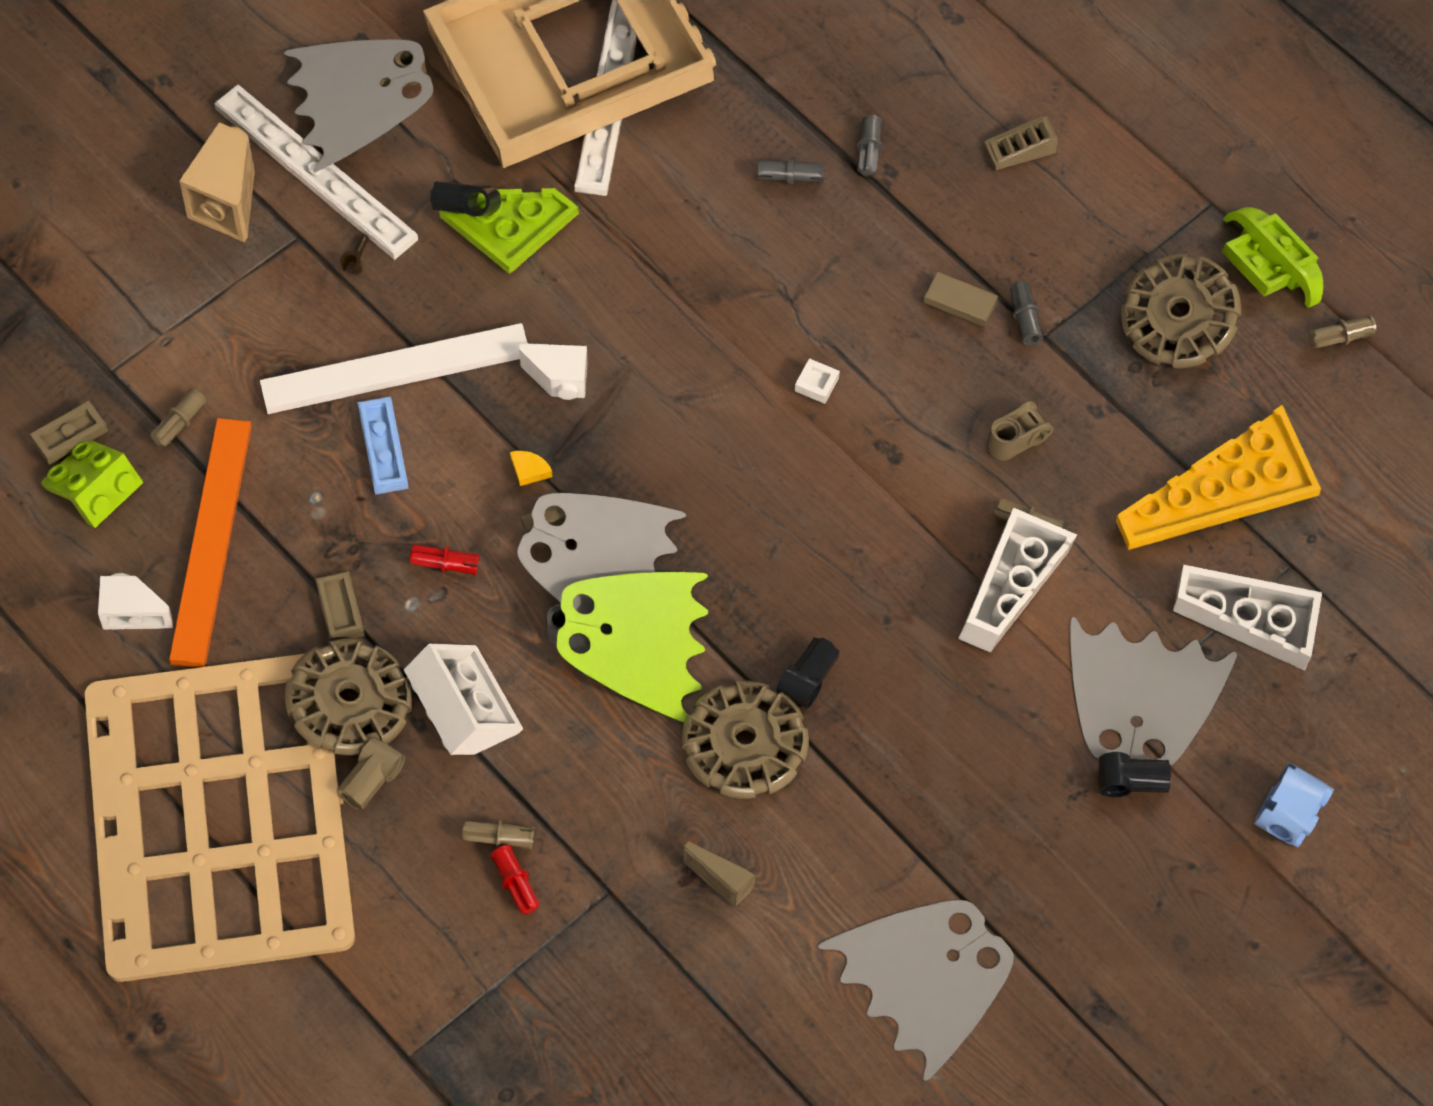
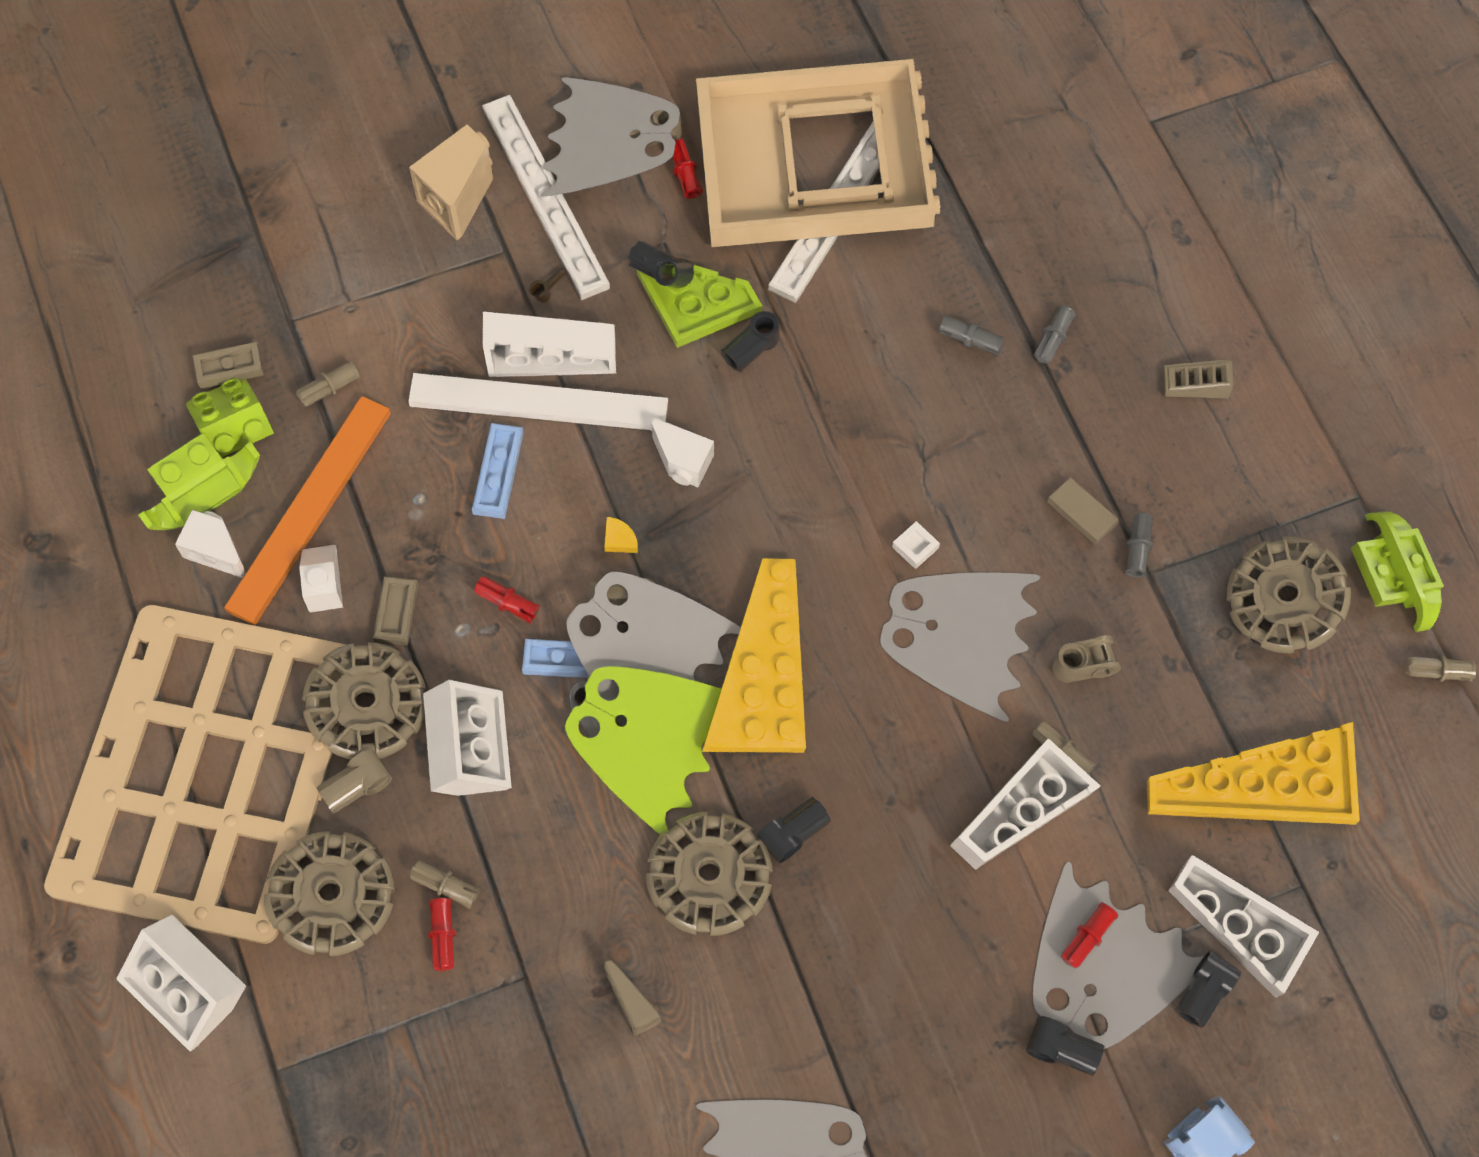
camera: 20 degrees right, 5 degrees up
(91, 547) = (197, 481): none -> lime plate
(254, 600) = (320, 578): none -> white slope
(282, 1008) = (180, 981): none -> white slope
(384, 311) = (546, 346): none -> white wedge
(387, 899) = (334, 913): none -> dark tan plate
(449, 105) = (686, 171): none -> red axle
(515, 599) = (551, 659): none -> light blue tile
(582, 244) = (750, 342): none -> black piece
(723, 550) = (763, 685): none -> yellow wing
(902, 443) = (972, 636): none -> light grey piece
(1117, 671) = (1089, 935): none -> red axle
(1243, 673) = (1211, 982): none -> black piece

